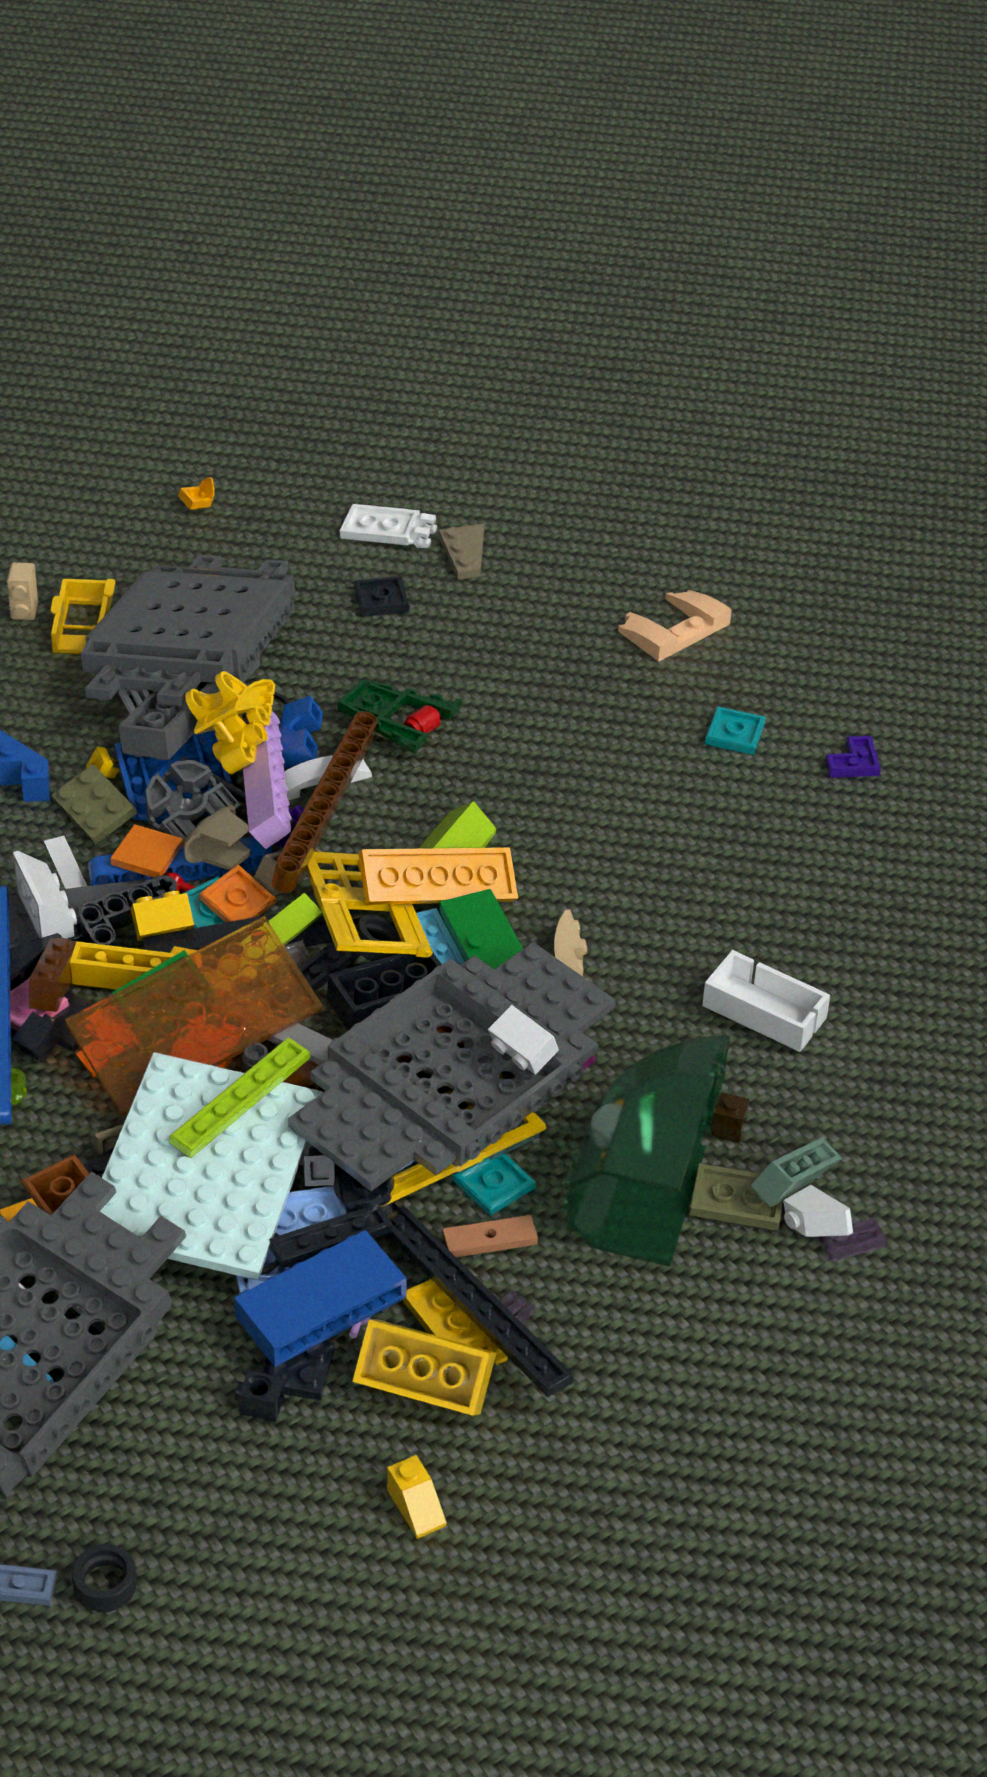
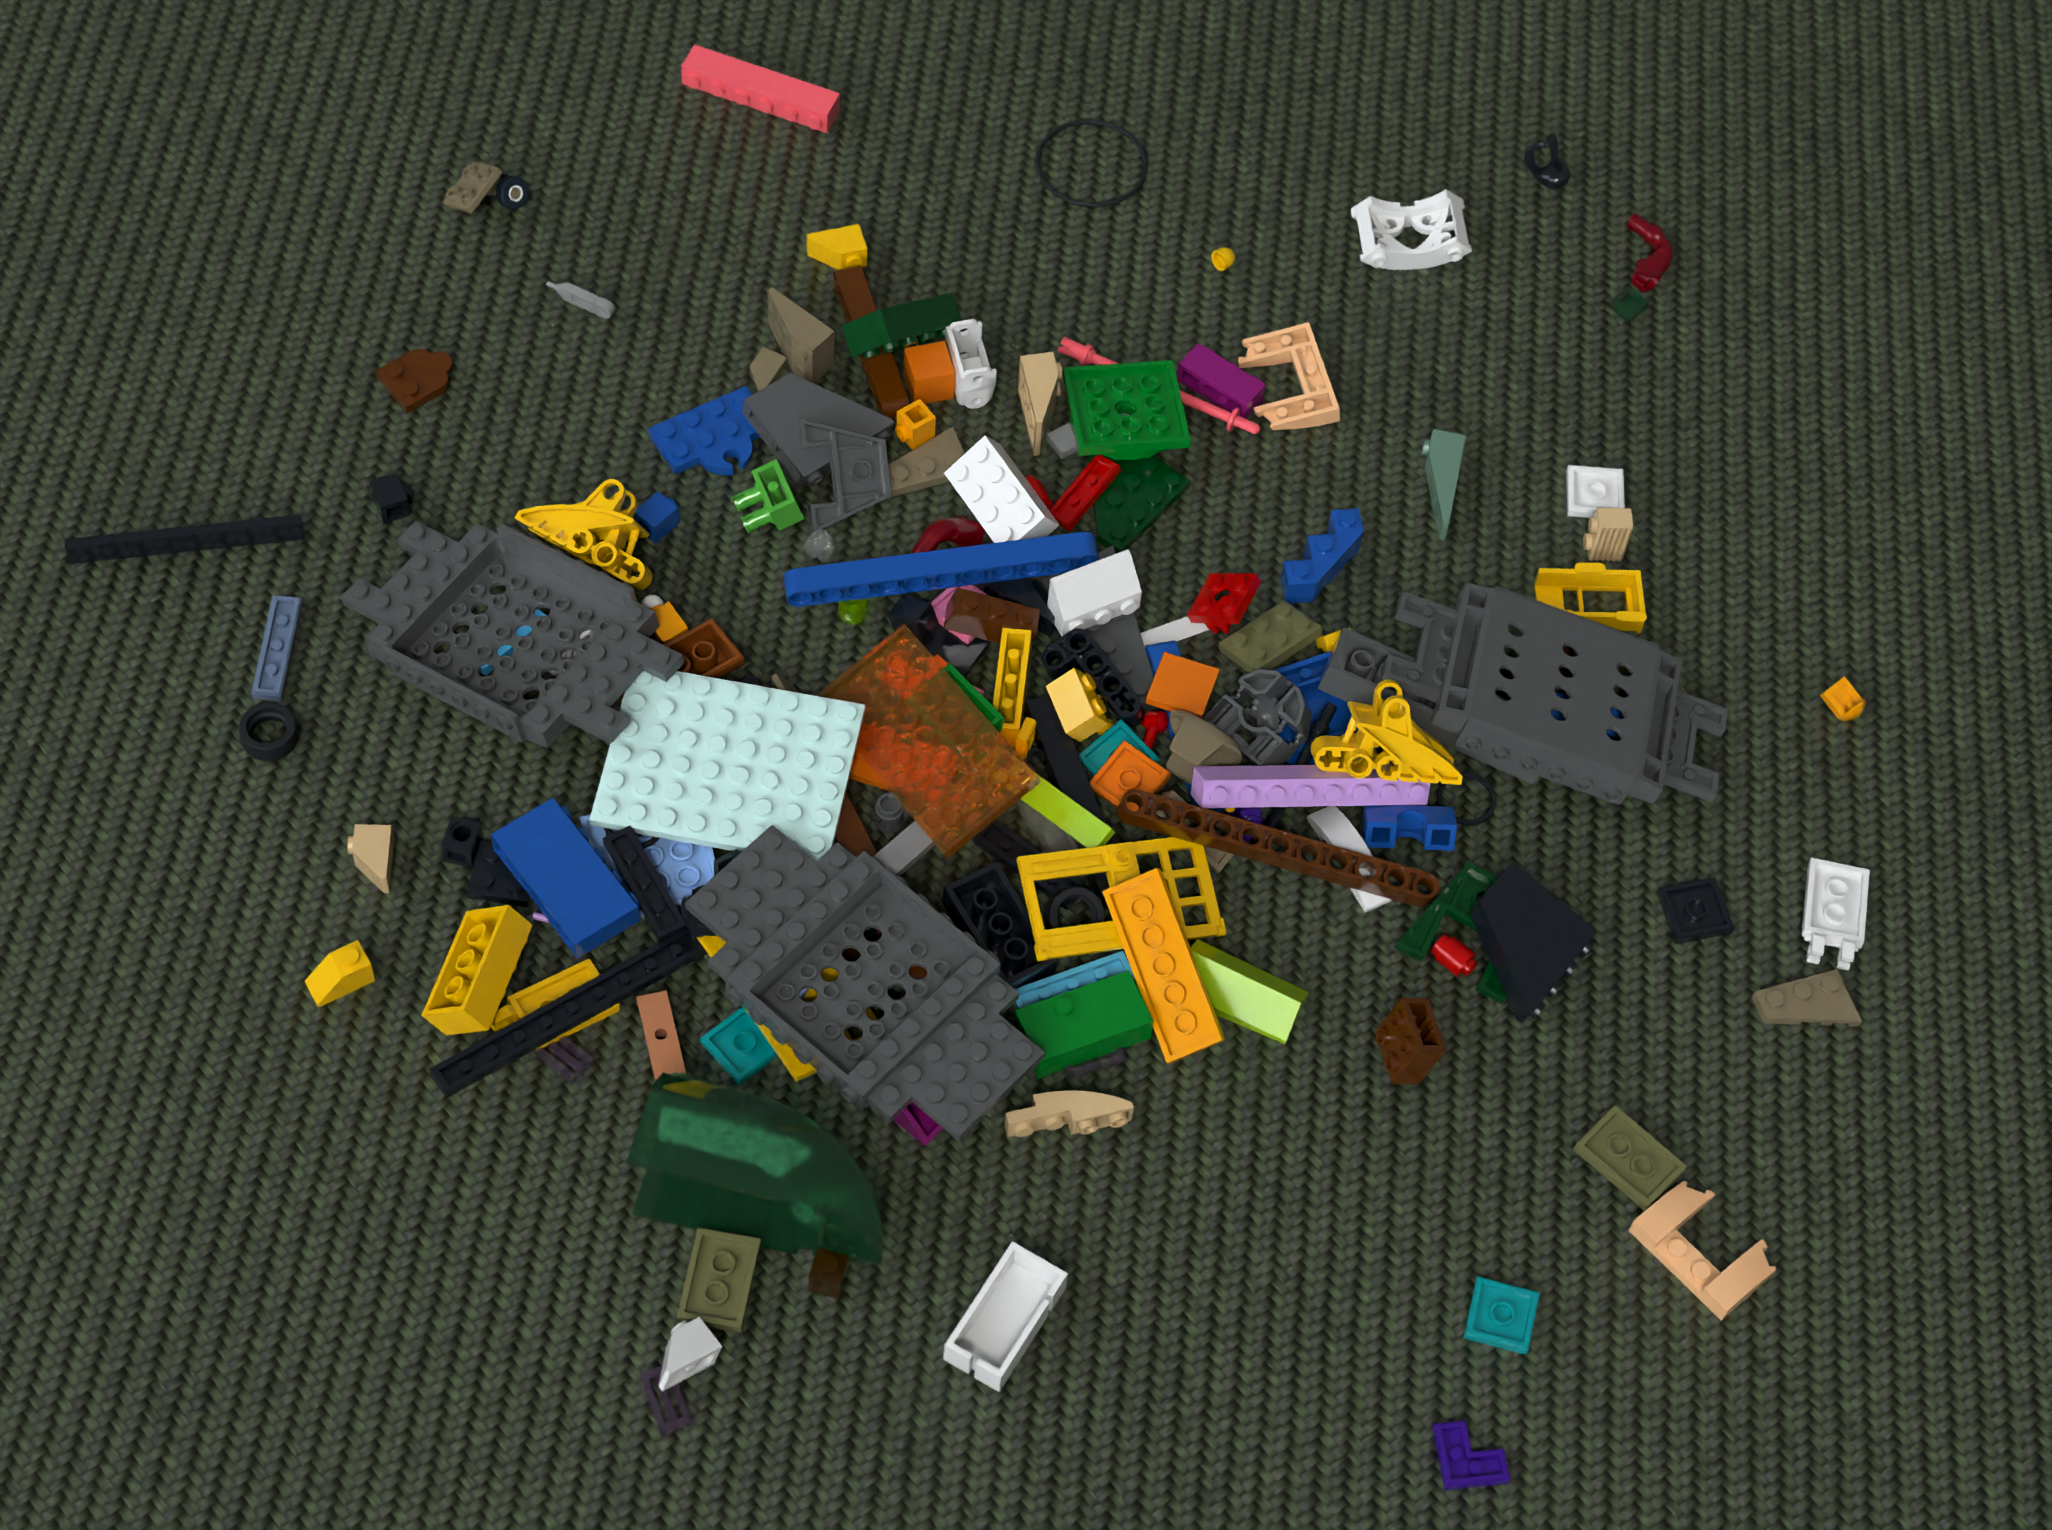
camera: 85 degrees right, 15 degrees up
(64, 831) = (1229, 608): none -> red piece
(239, 1097) = (803, 783): lime tile -> none
(273, 1471) = (373, 853): none -> tan slope
(414, 674) = (1529, 939): none -> black slope
(510, 743) = (1410, 1041): none -> reddish brown brick
(523, 1040) = (865, 1028): white brick -> none
(601, 649) = (1630, 1158): none -> olive plate
(794, 1171) = (745, 1336): sand green slope -> none

